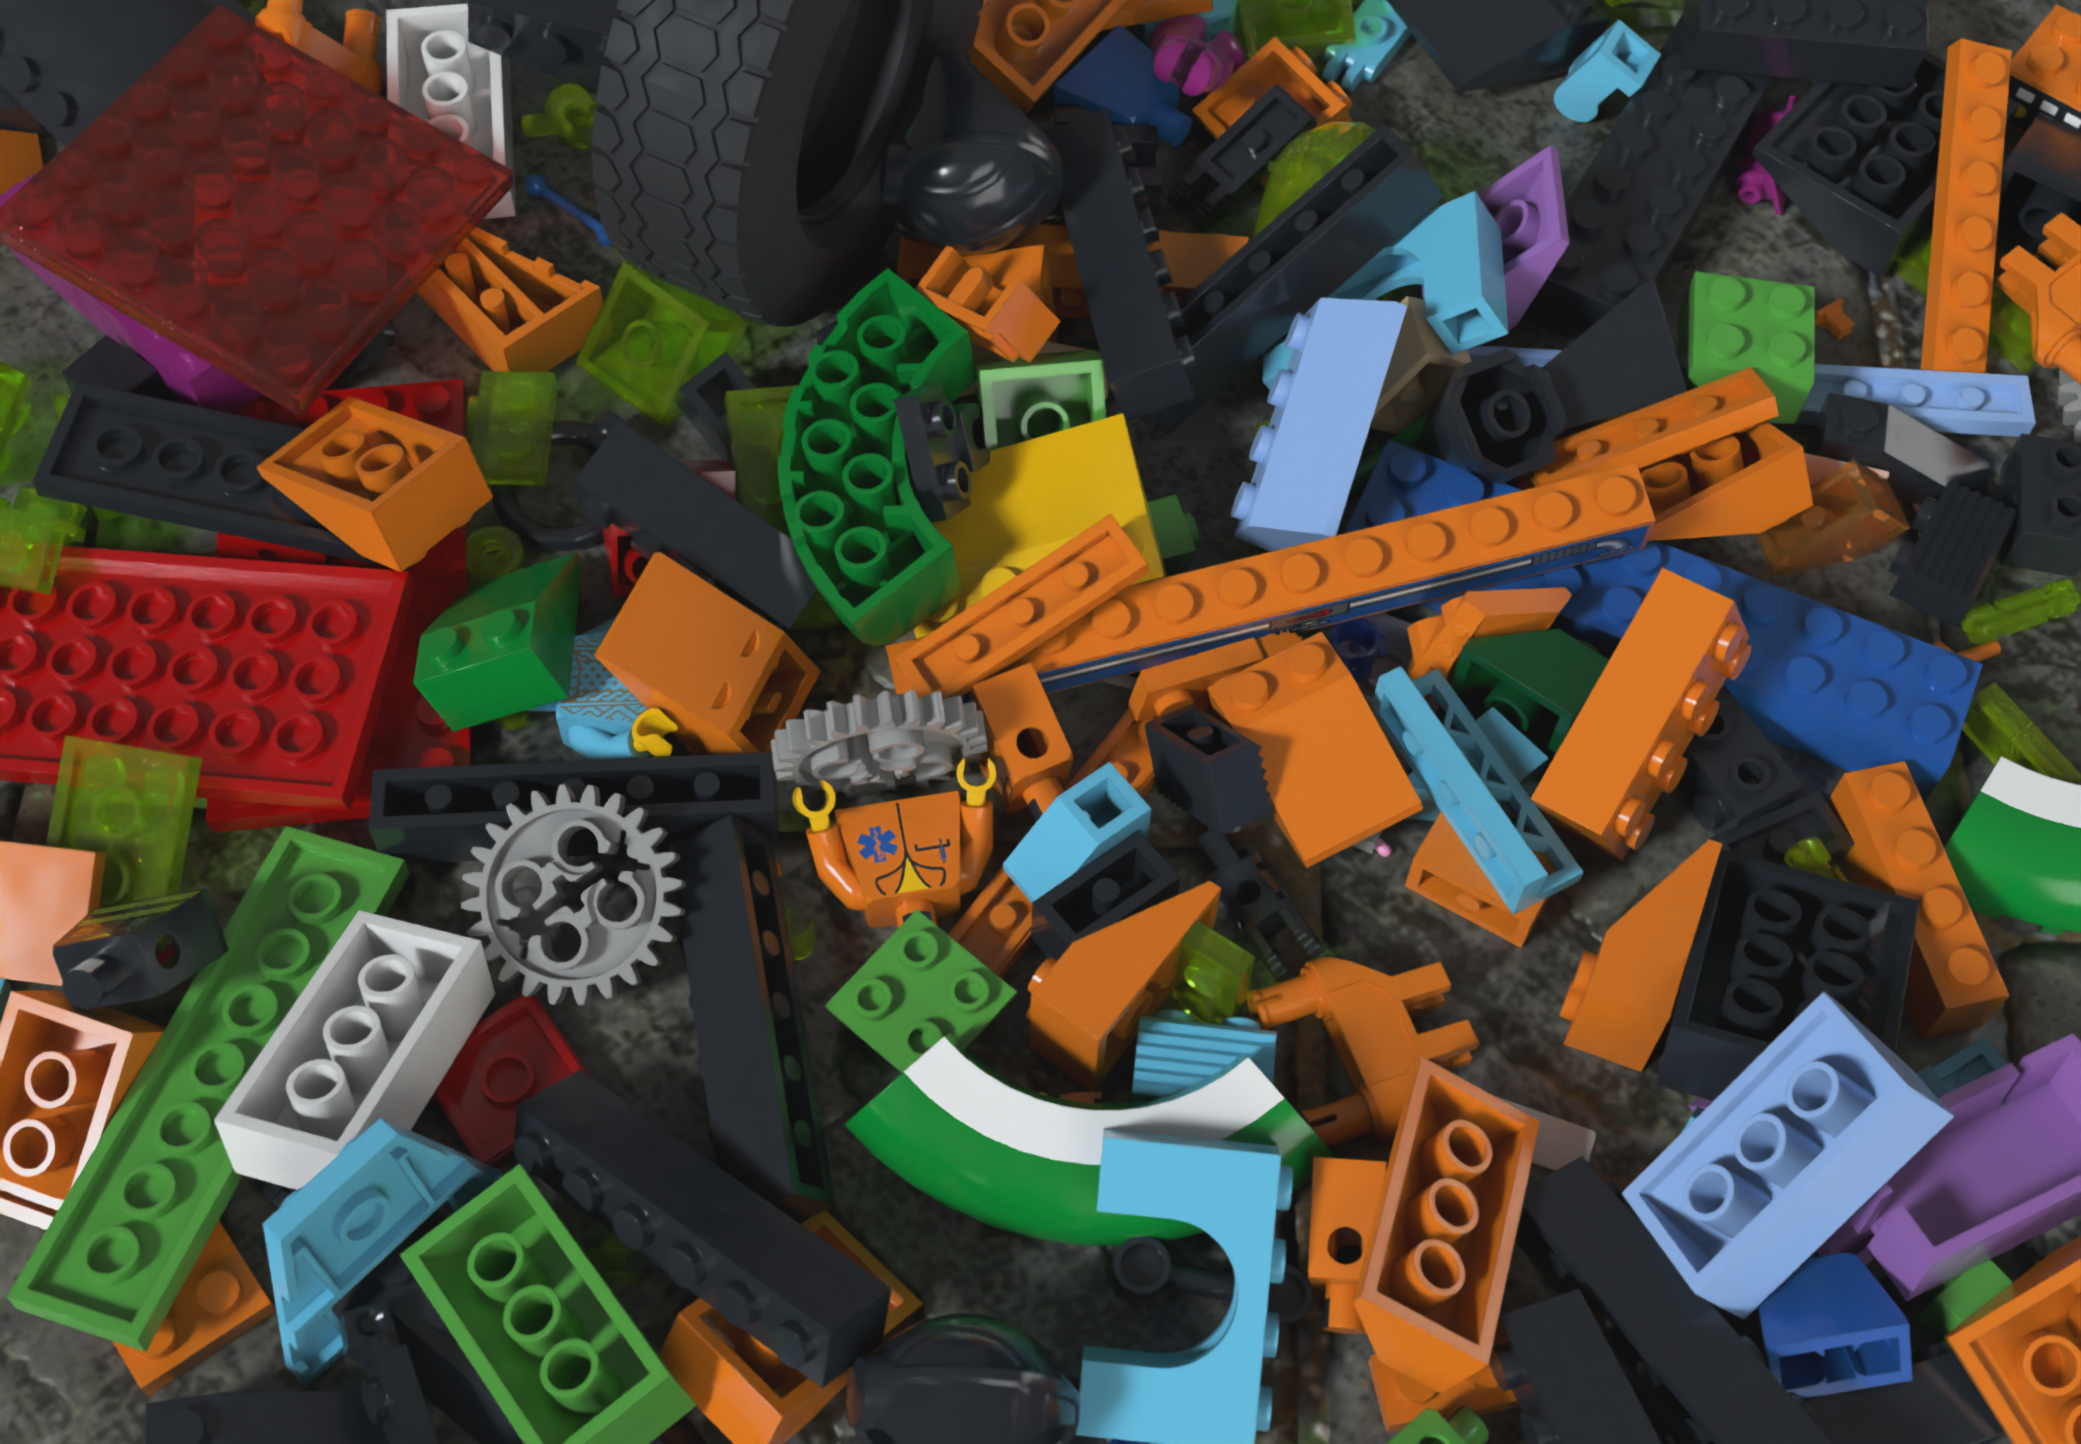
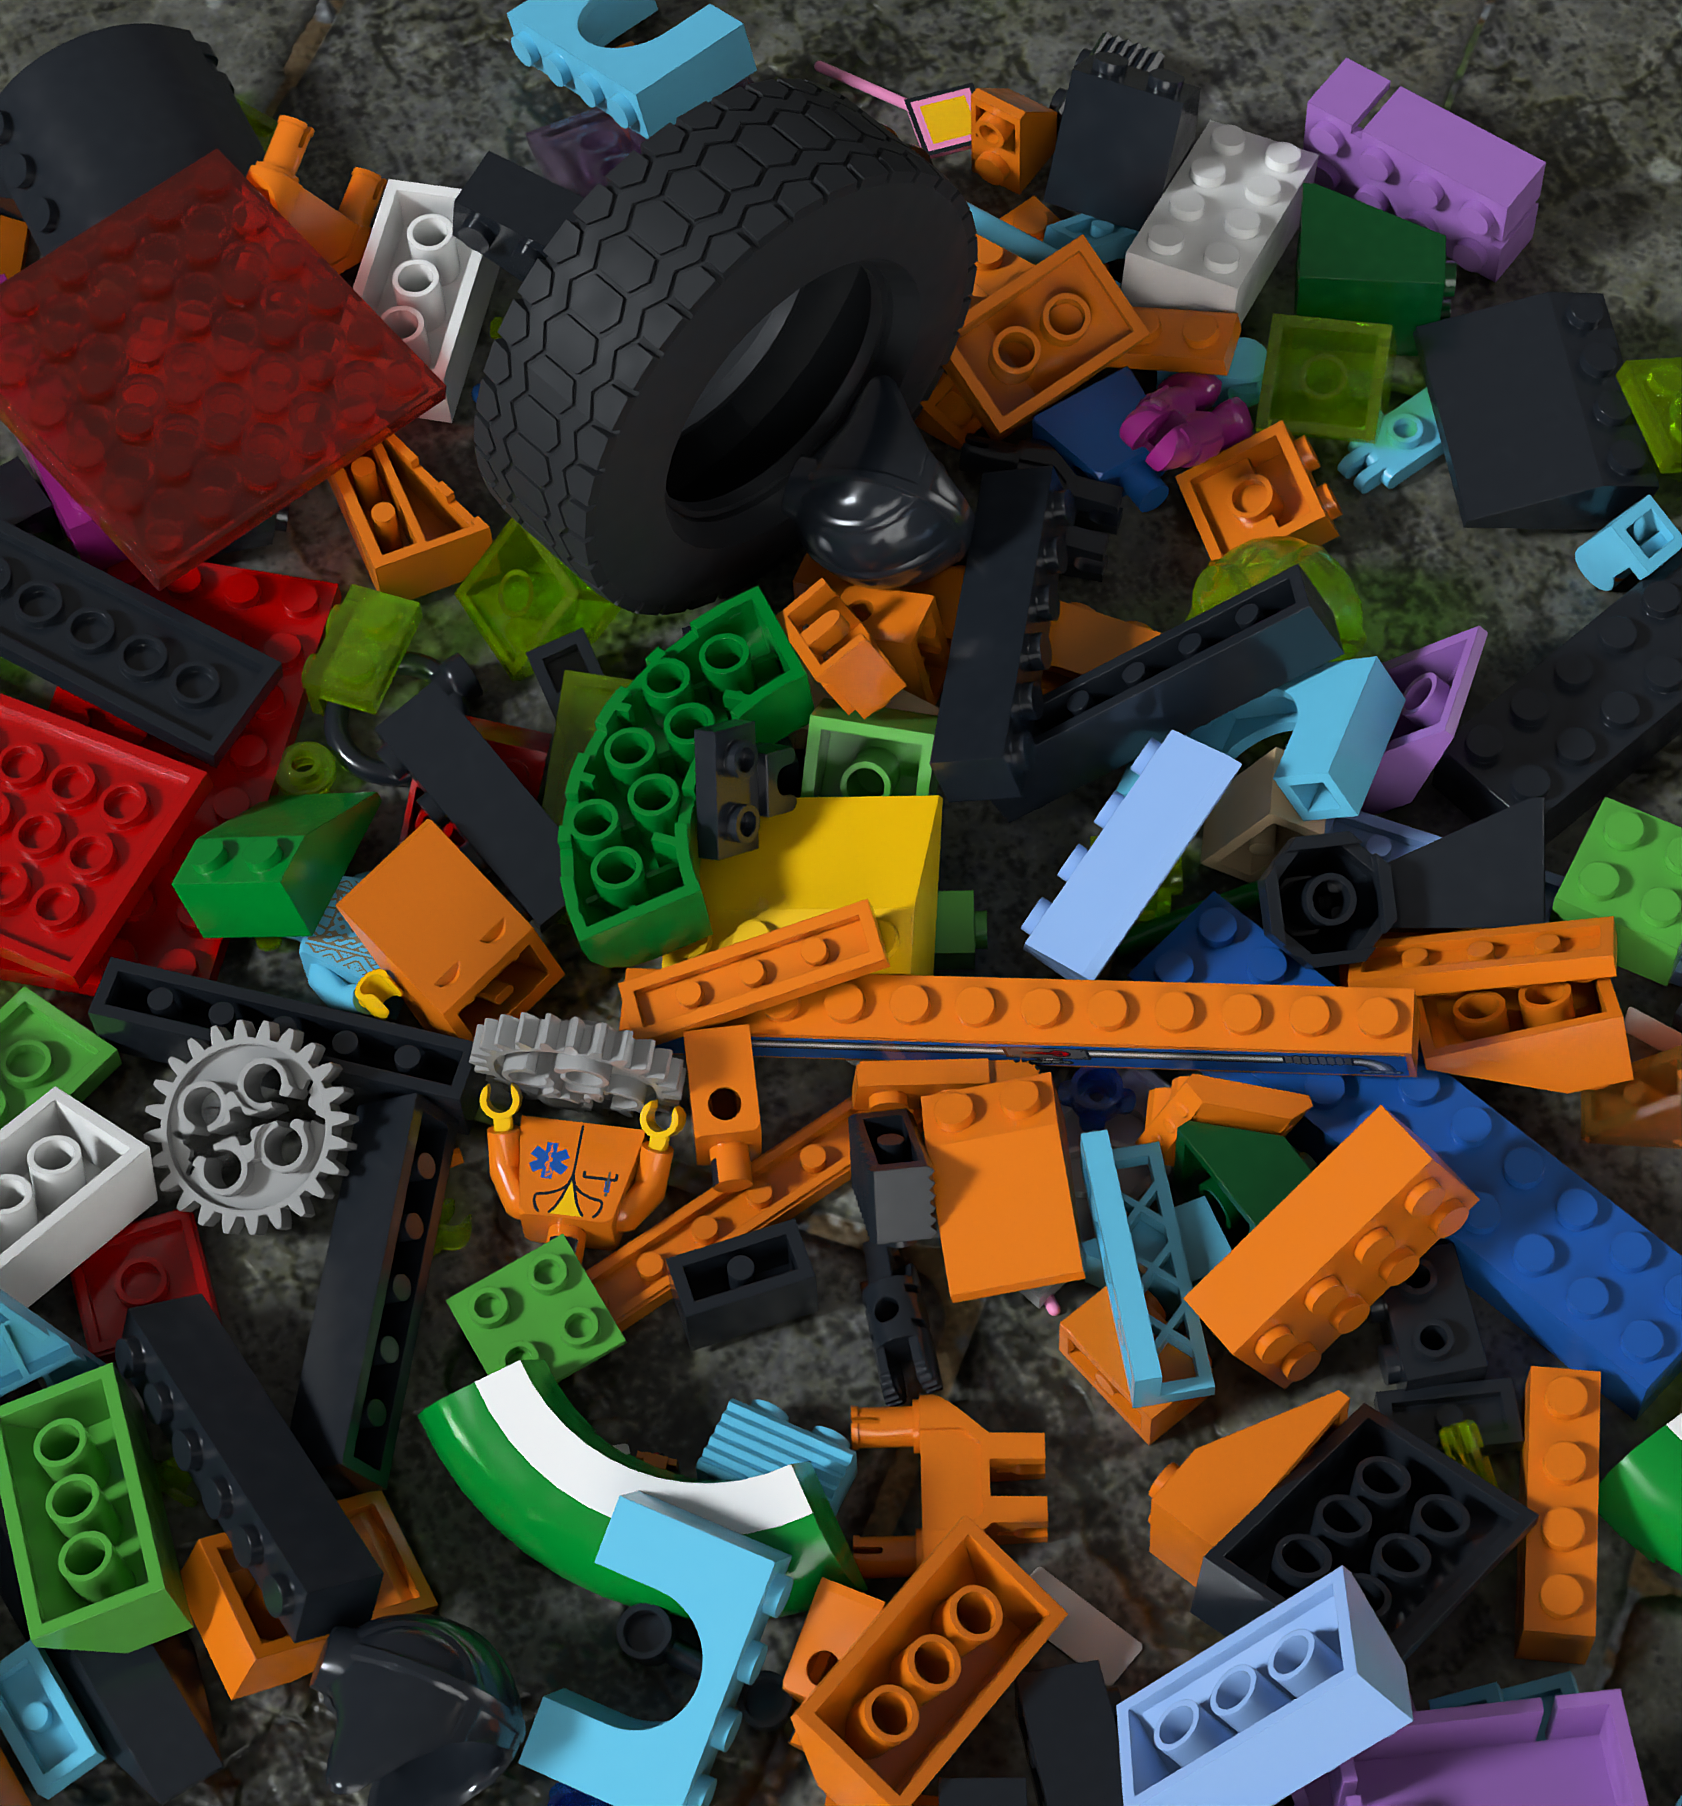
camera: 25 degrees right, 0 degrees up
(380, 480) = (209, 675): orange slope -> none
(1077, 831) = (740, 1200): medium azure slope -> none
(1093, 996) = (741, 1349): orange slope -> none
(1212, 976) = (813, 1381): clear neon green plate -> none
(1241, 157) = (1194, 541): black hinge -> none

